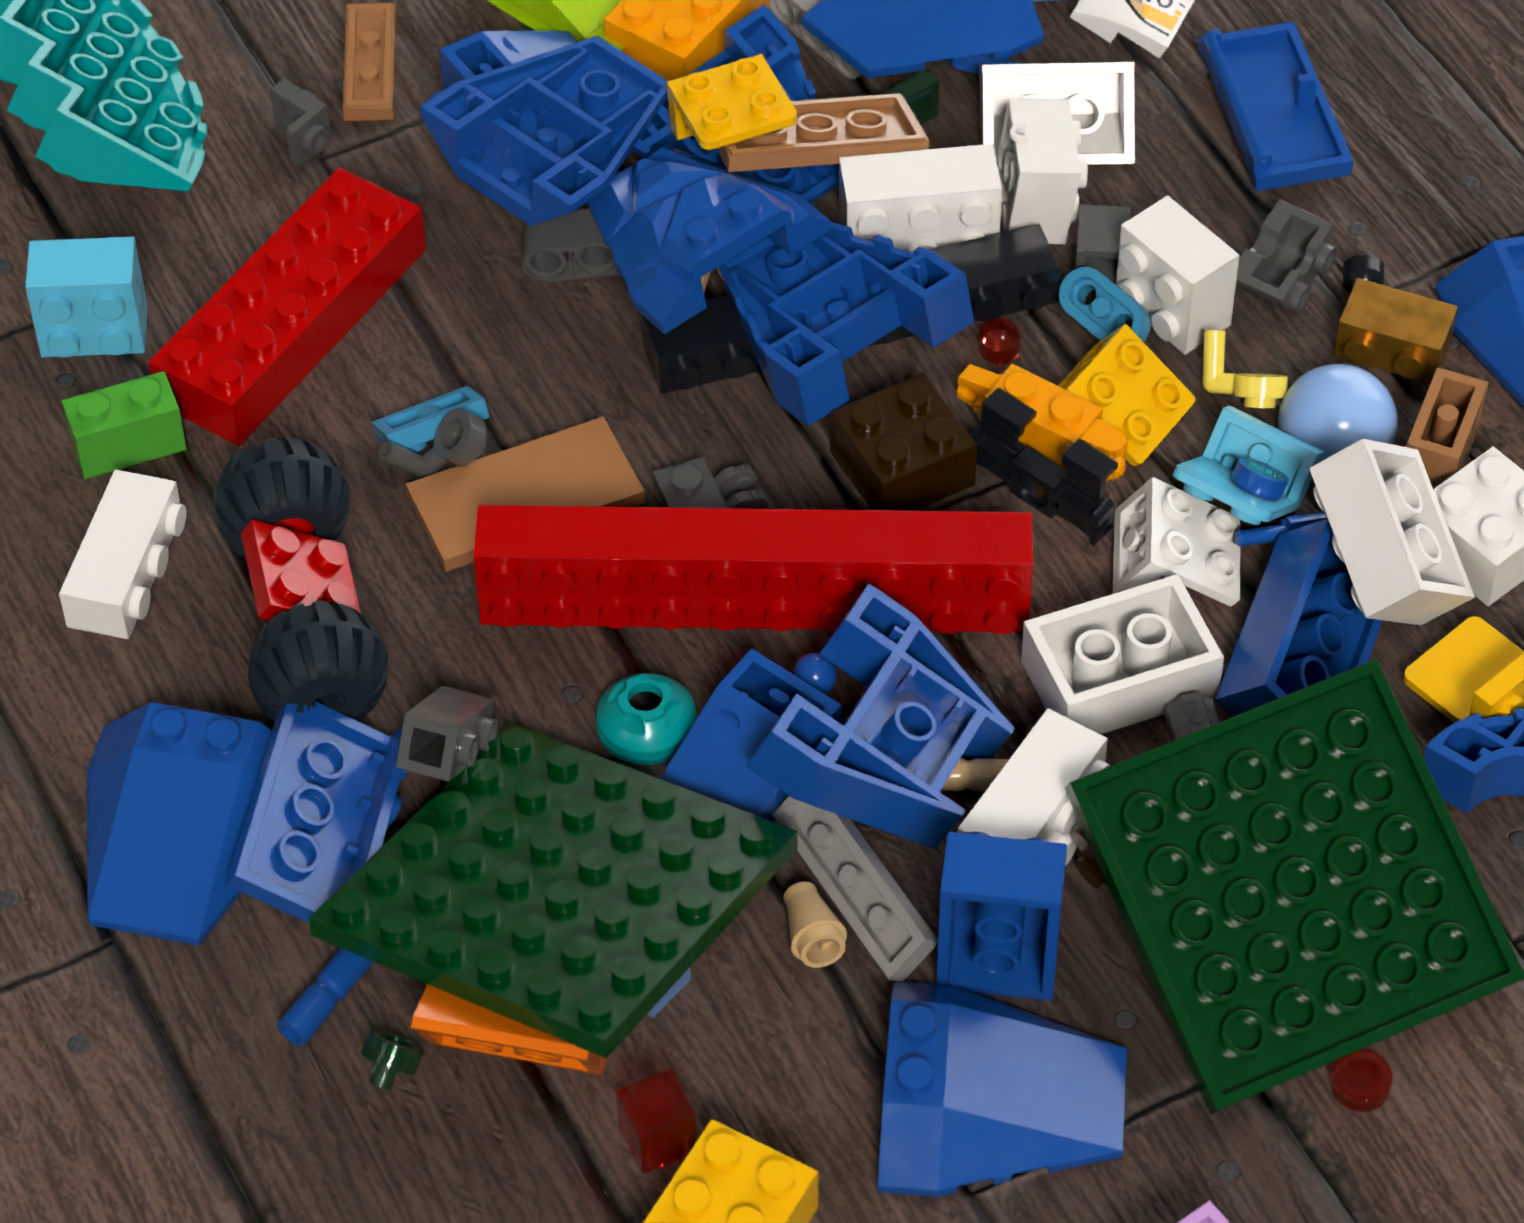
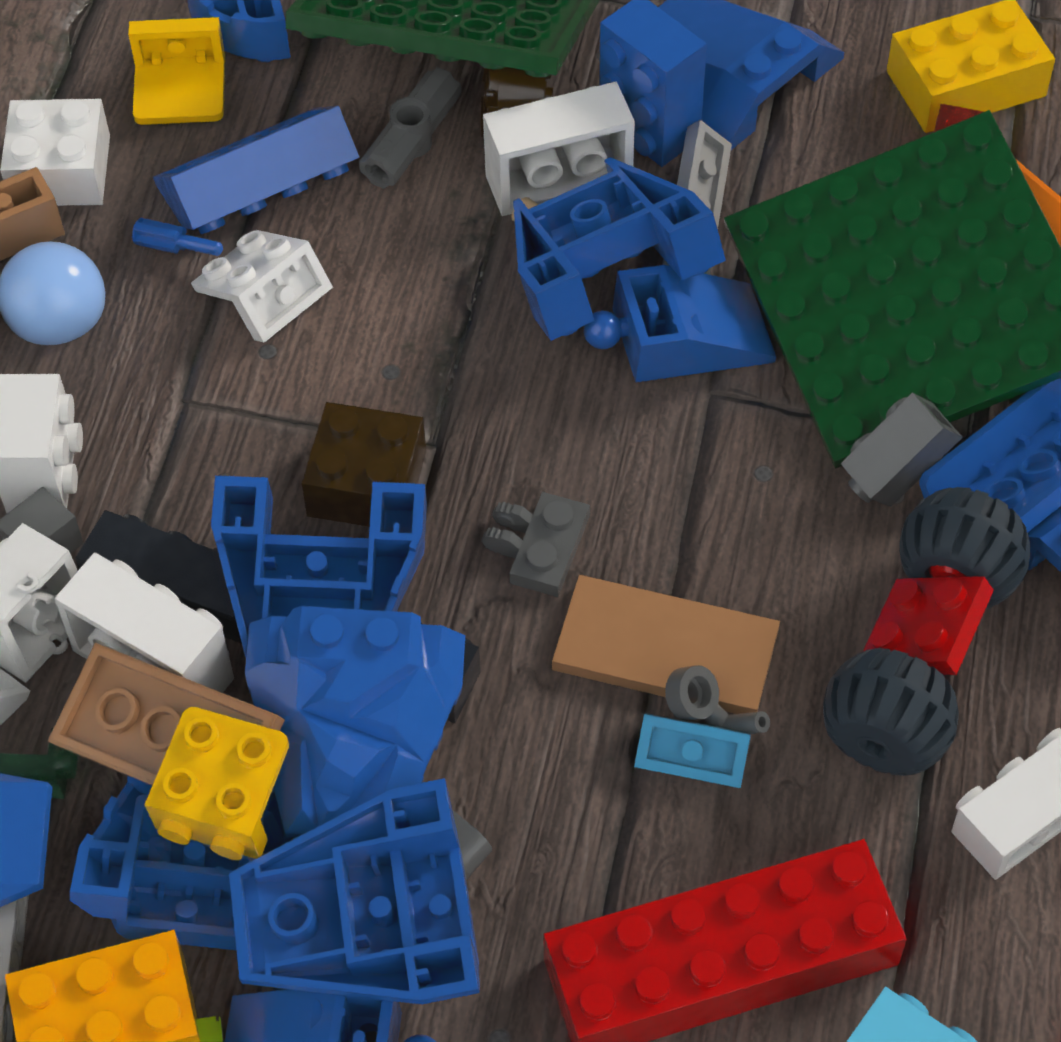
camera: 140 degrees left, 5 degrees up
(124, 425) = (959, 922): bright green brick -> none
(644, 735) = (728, 428): teal piece -> none
(749, 566) = (580, 430): red brick -> none
(814, 929) = (751, 188): tan cone -> none
(999, 342) = (183, 525): clear red hinge -> none
(1036, 479) = (291, 381): black piece -> none
(1059, 416) = (247, 411): light orange hinge -> none
(1108, 309) = (96, 487): dark azure plate -> none
(1122, 655) = (389, 213): white brick -> none
(1132, 389) = (170, 417): yellow bracket -> none
(1244, 436) = (168, 286): medium azure bracket -> none
(1257, 389) = (71, 349): light yellow plate -> none
(1259, 479) = (162, 264): blue tile -> none
(1390, 533) = (144, 146): white brick -> none

